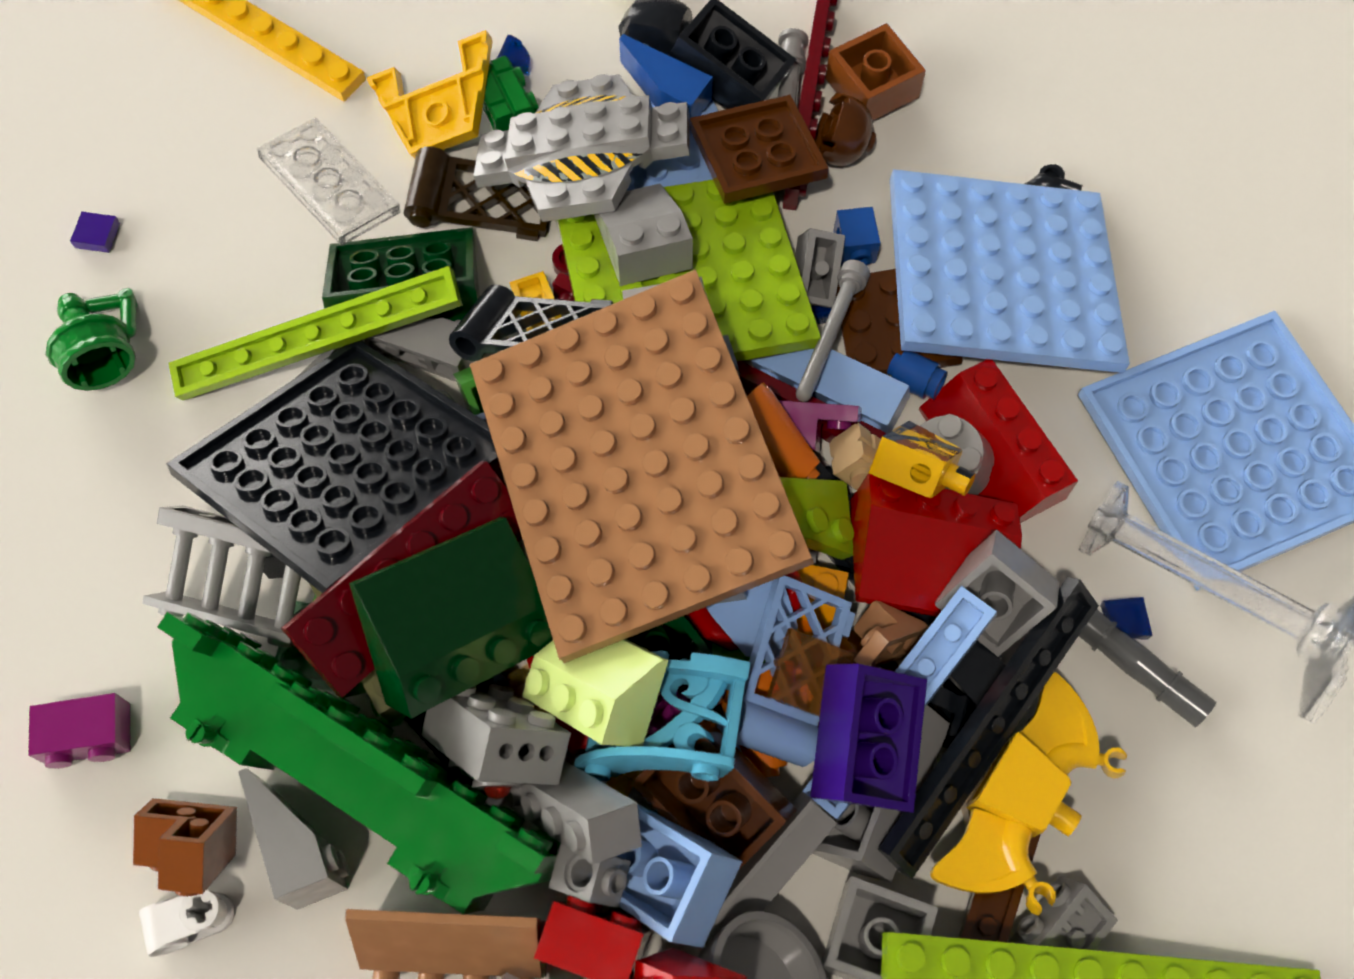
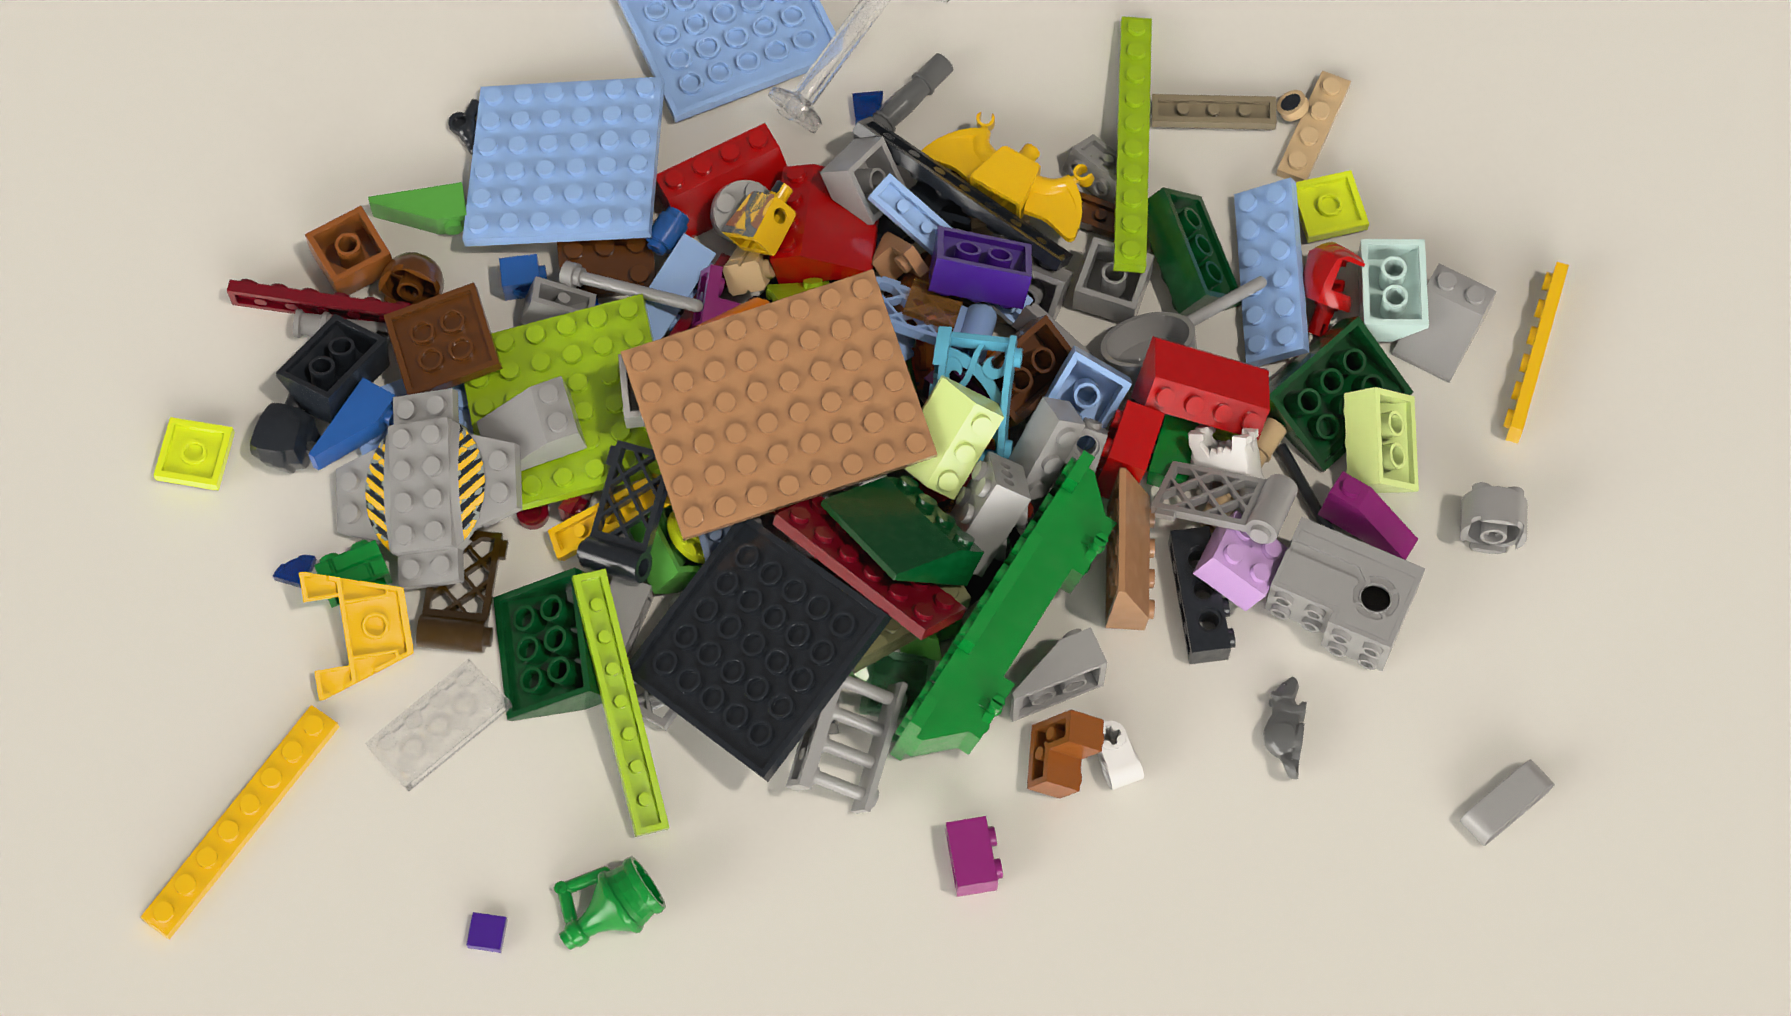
camera: 90 degrees left, 0 degrees up
(939, 144) = (429, 209): none -> bright green slope

